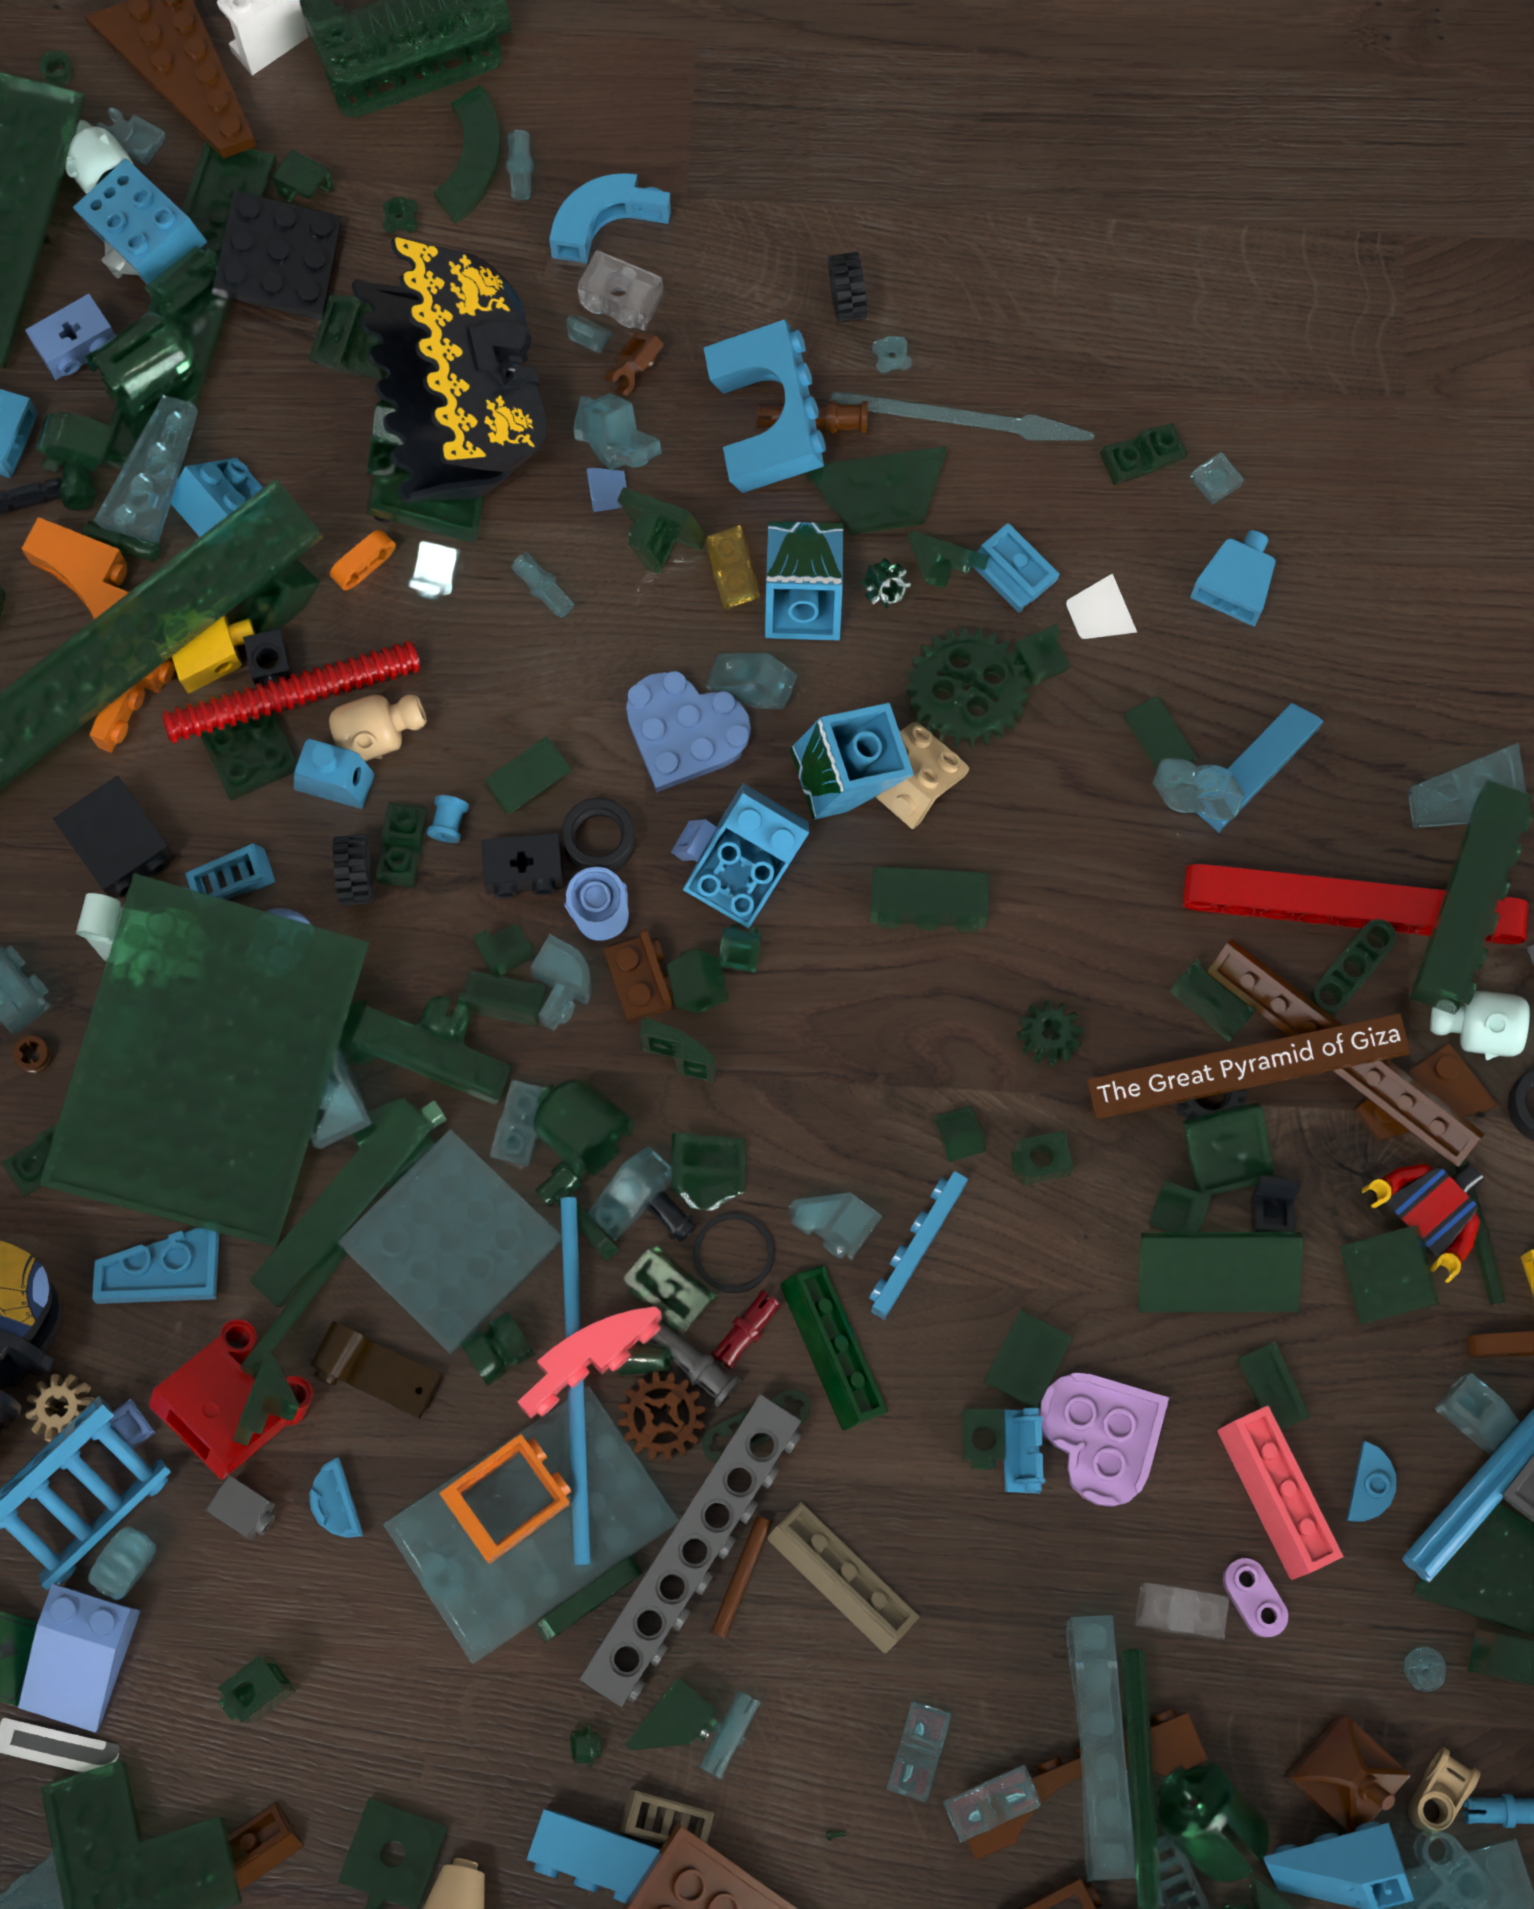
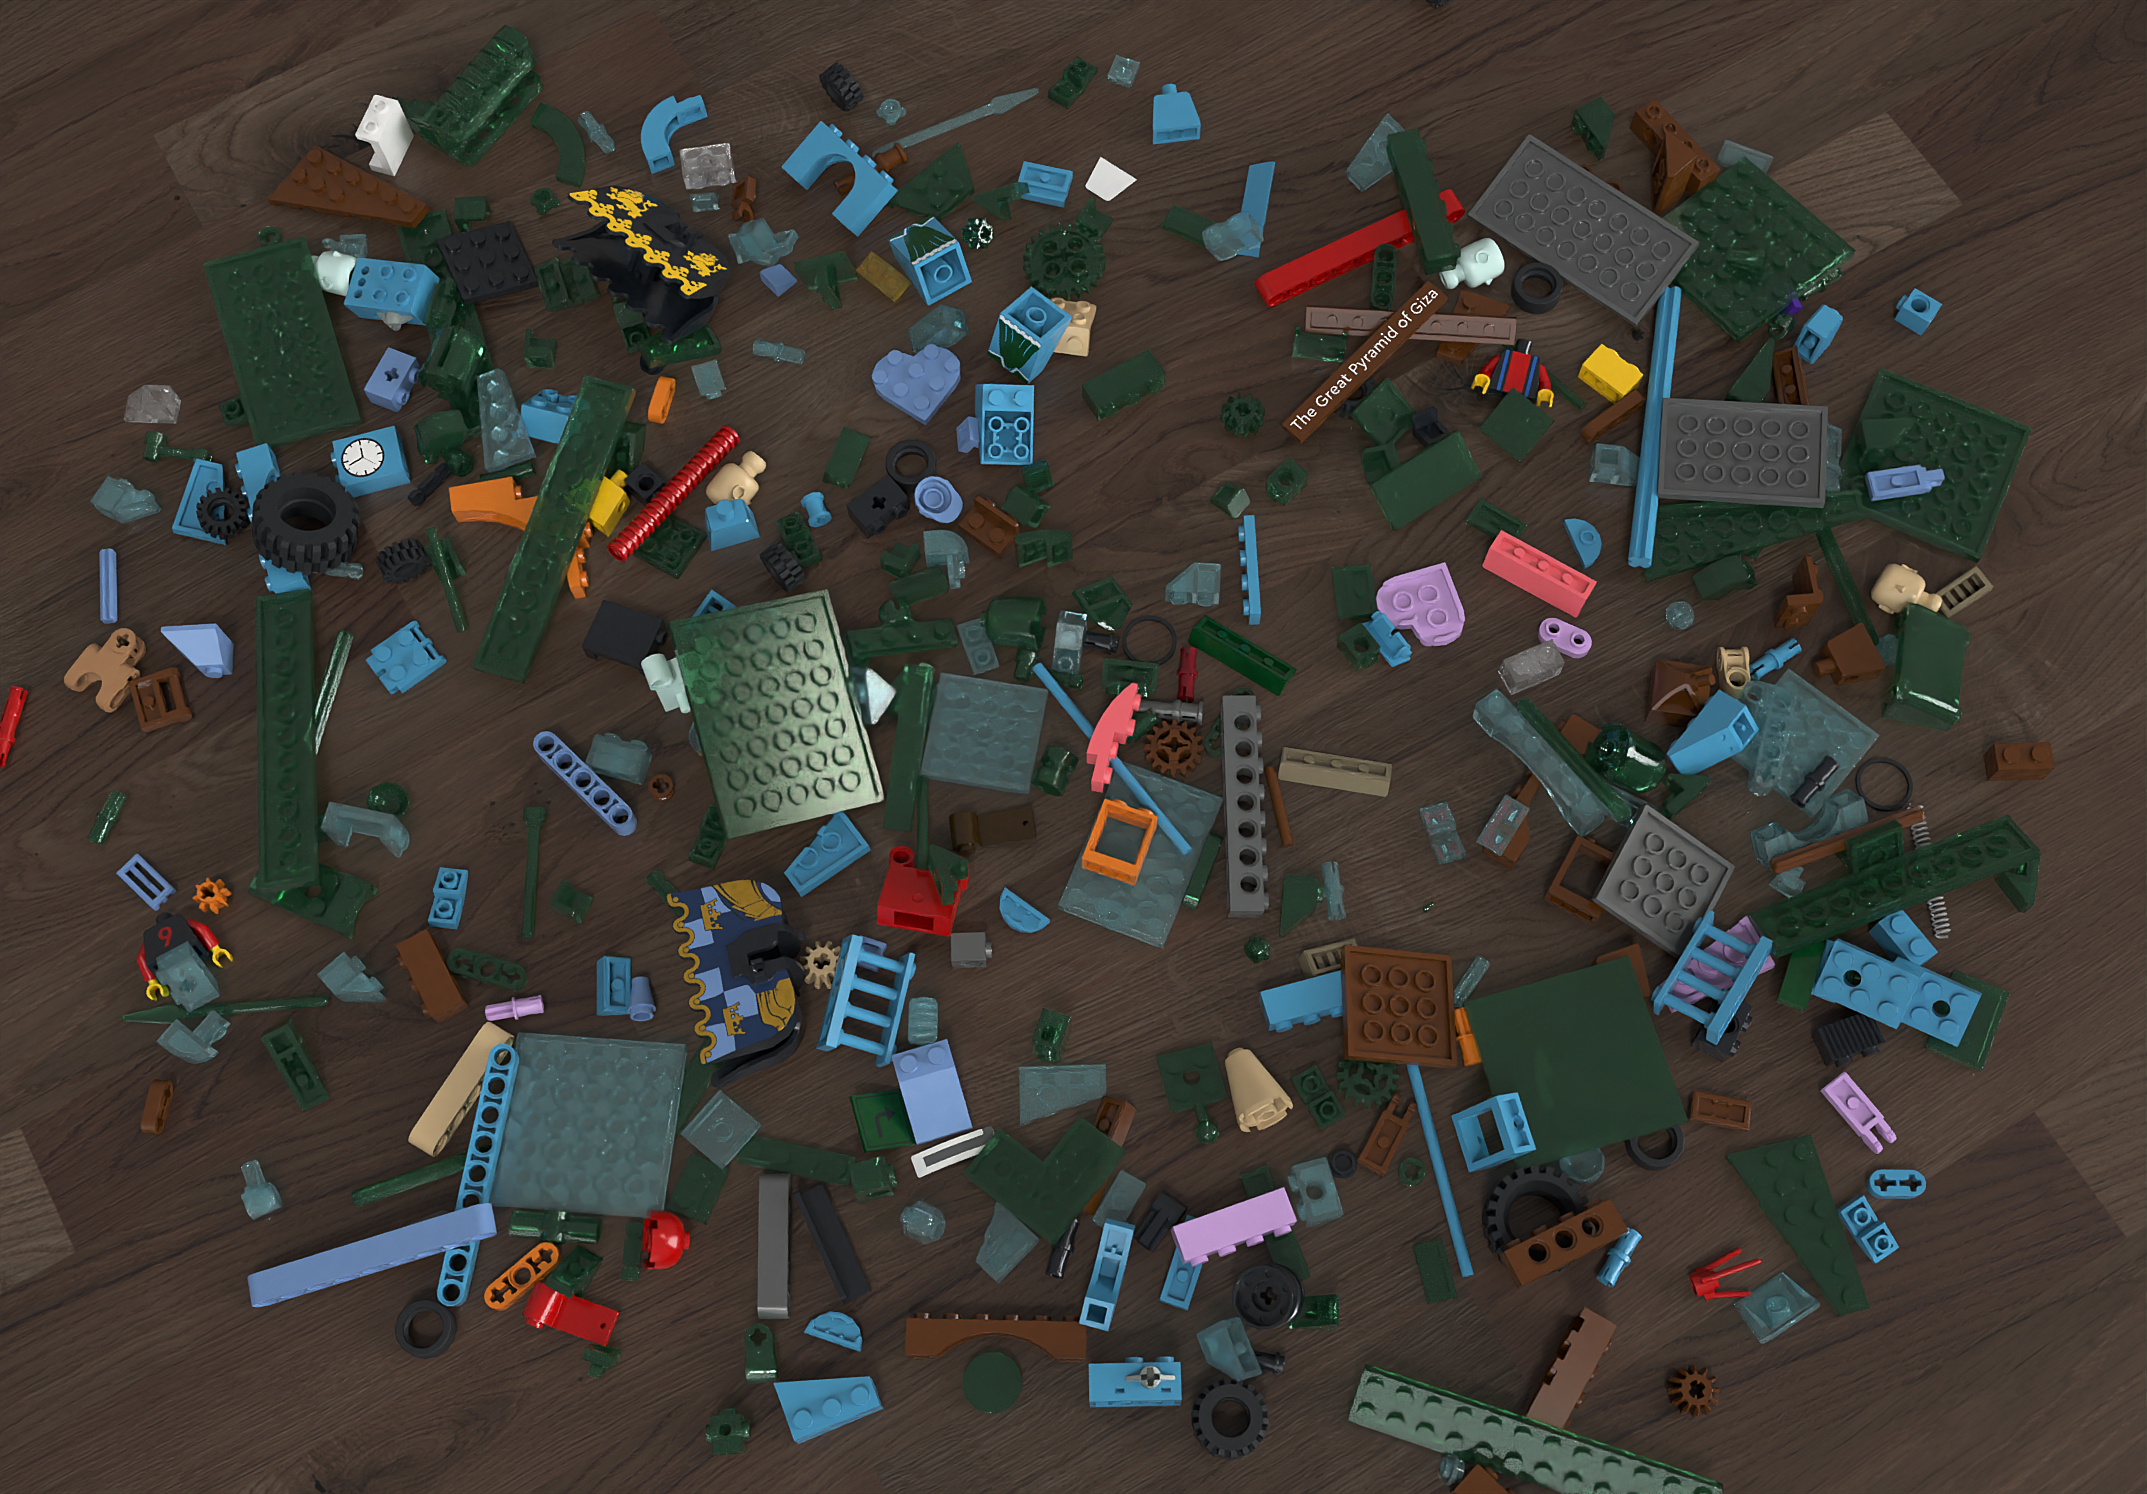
camera: 30 degrees left, 5 degrees down
(227, 1755) = (1057, 1088): none -> clear light blue wing
(264, 405) = (538, 351): none -> clear green panel

